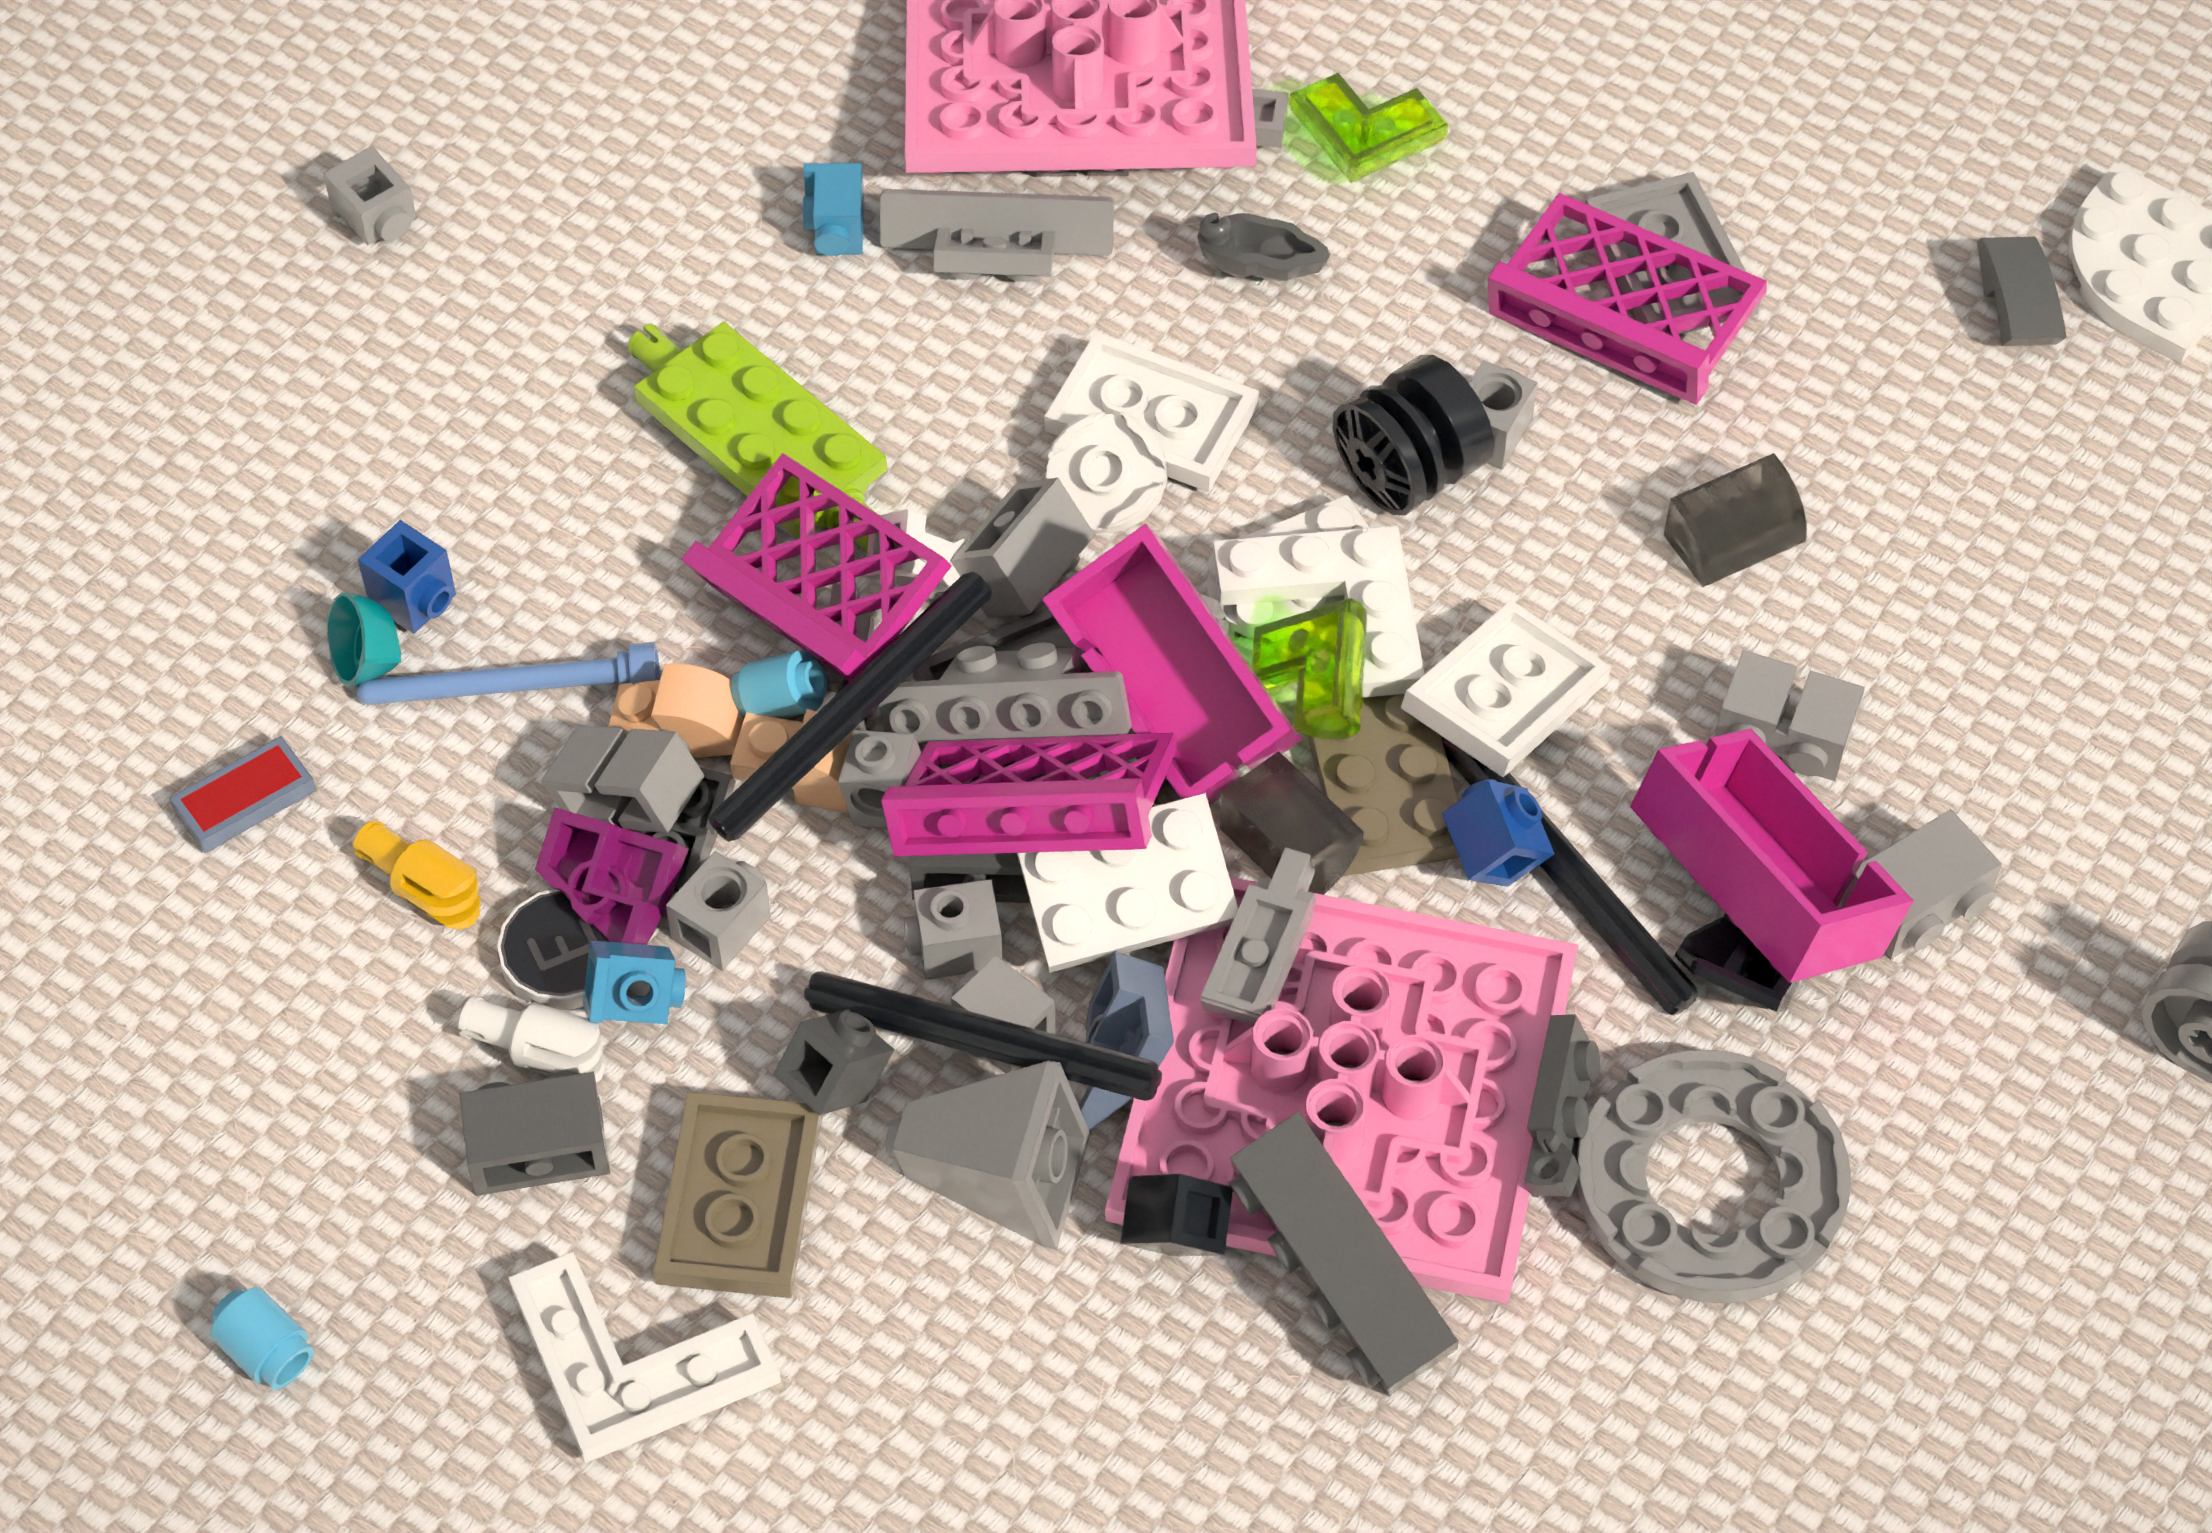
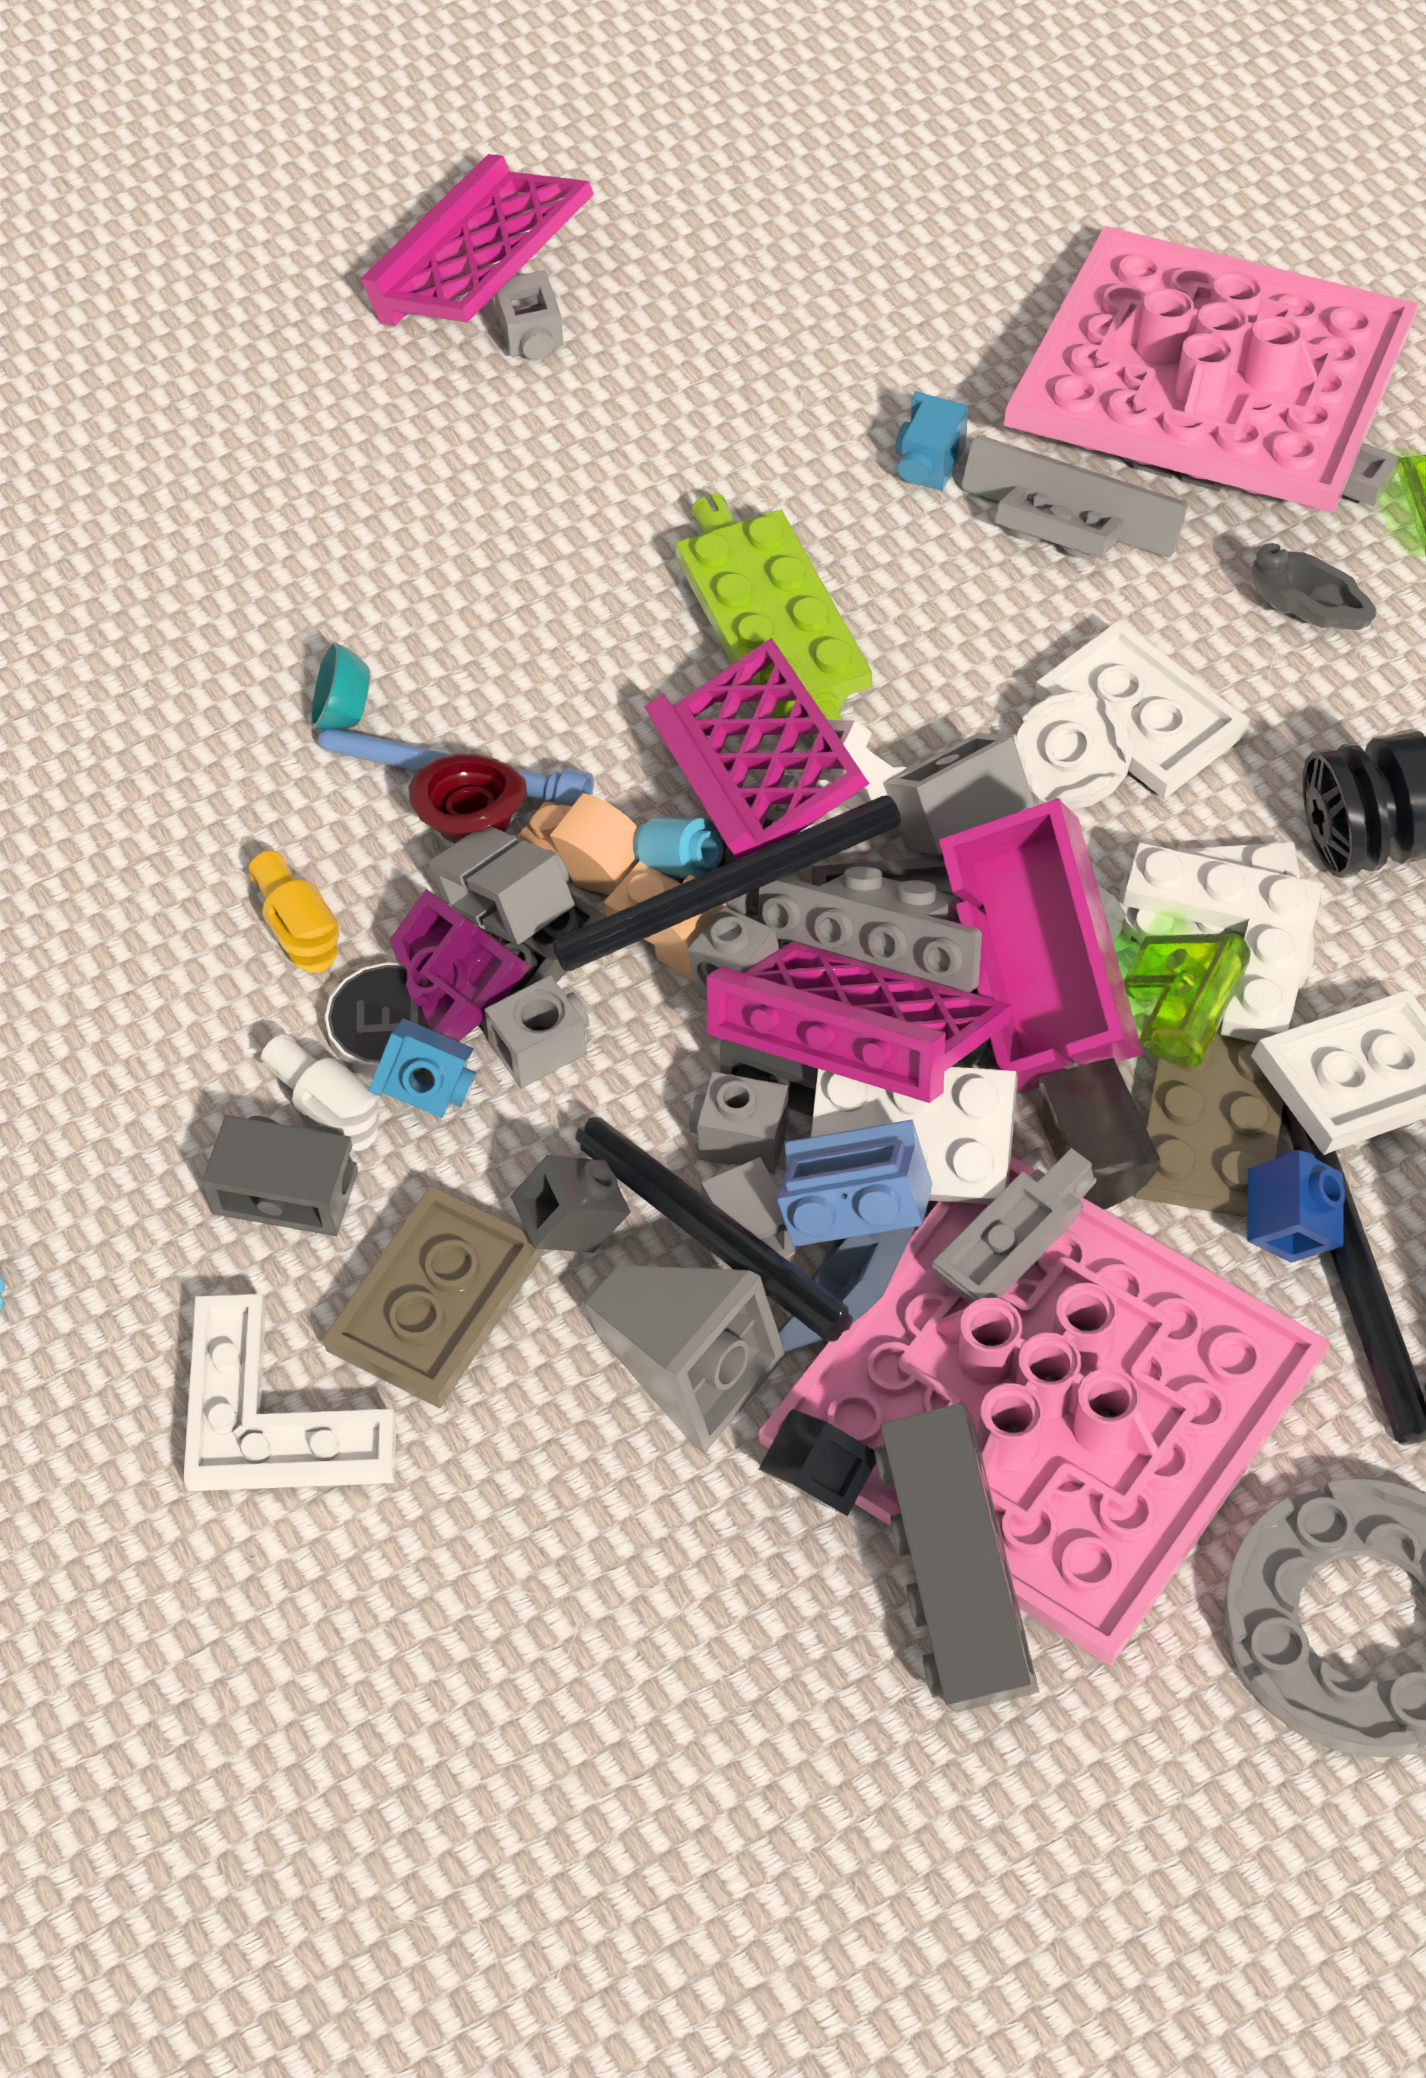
camera: 25 degrees right, 0 degrees up
(242, 794) = (181, 792): tile -> none
(253, 130) = (464, 220): none -> dark pink fence
(408, 576) = (401, 647): blue brick -> none
(545, 702) = (466, 794): none -> dark red hat
(1102, 948) = (854, 1183): none -> medium blue window
(1560, 1107) = (1239, 1492): dark grey hinge -> none

